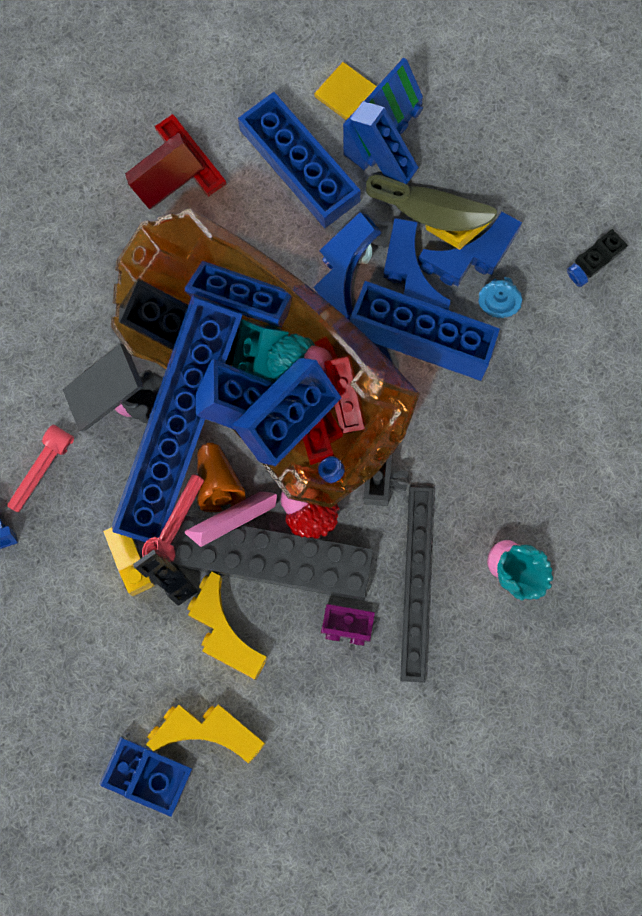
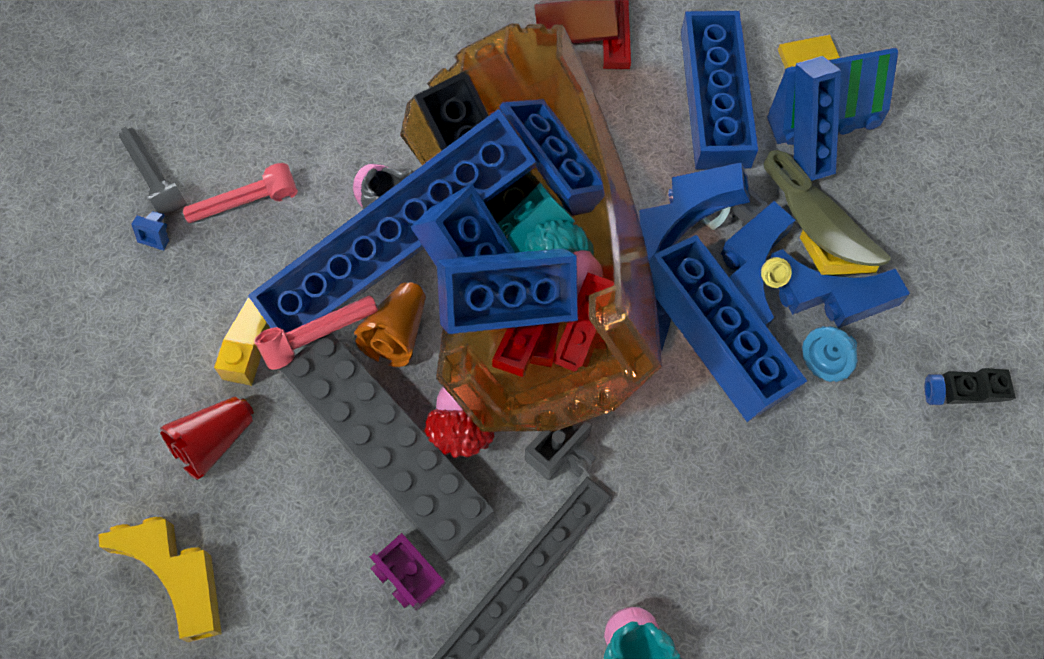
camera: 30 degrees right, 10 degrees down
(102, 387) = (357, 159): dark grey tile -> none
(145, 776) = (72, 570): blue slope -> none
(157, 637) = (207, 434): none -> red cone
(166, 575) = (262, 371): black slope -> none
(222, 642) = (266, 490): yellow arch -> none
(232, 518) = (374, 369): bright pink slope -> none
(331, 469) = (508, 385): blue tile -> none
(431, 269) = (776, 272): none -> light yellow plate

